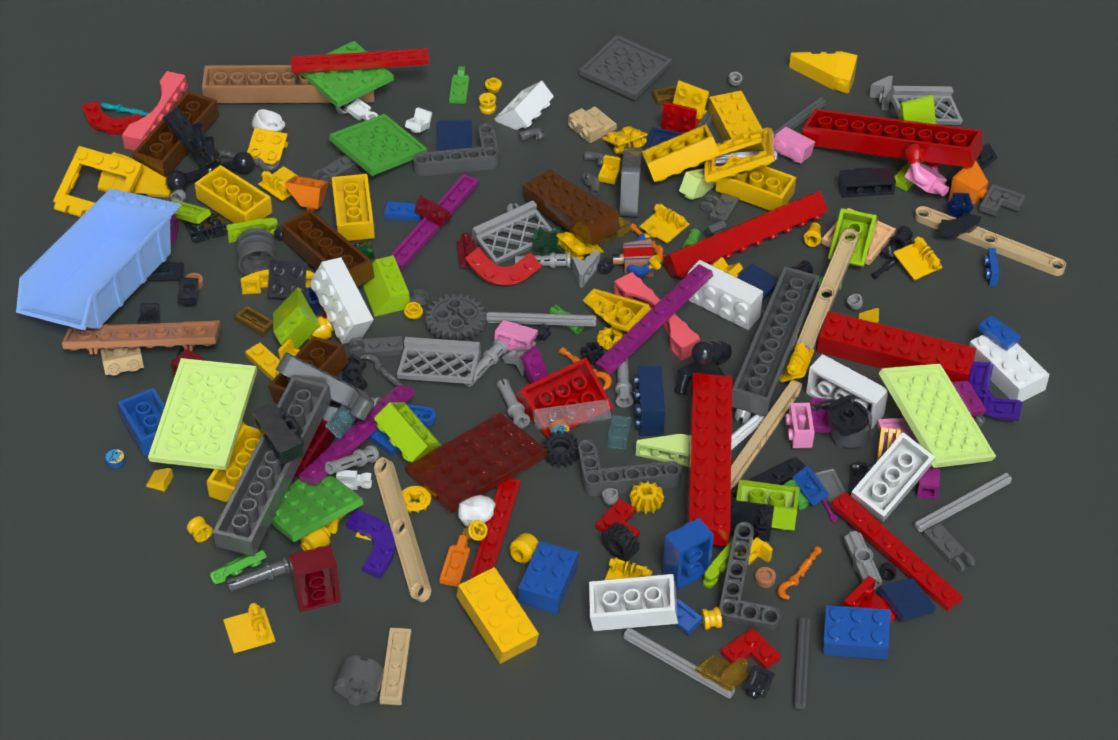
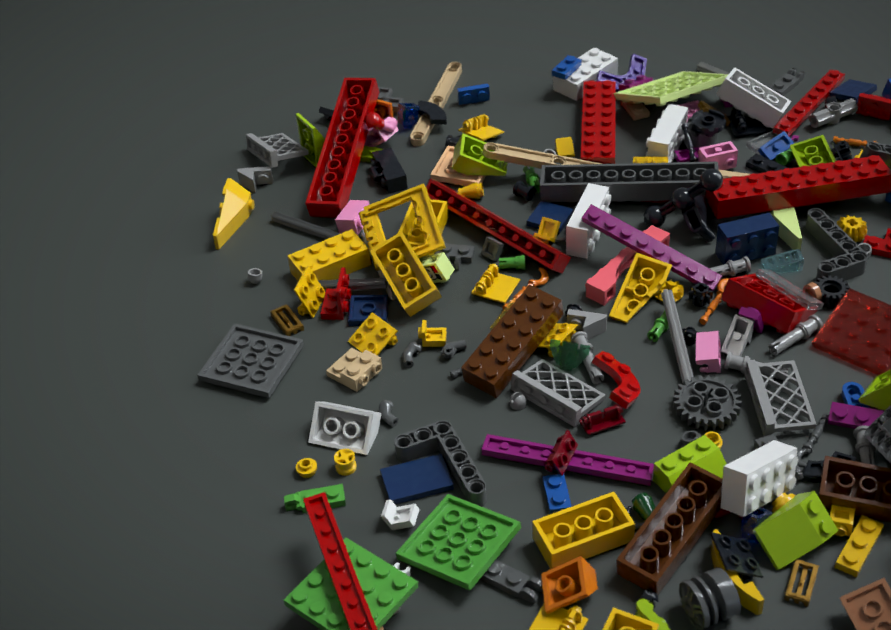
camera: 100 degrees left, 5 degrees down
(630, 181) = (441, 302): dark grey beam -> none
(638, 255) = (560, 284): torso -> none

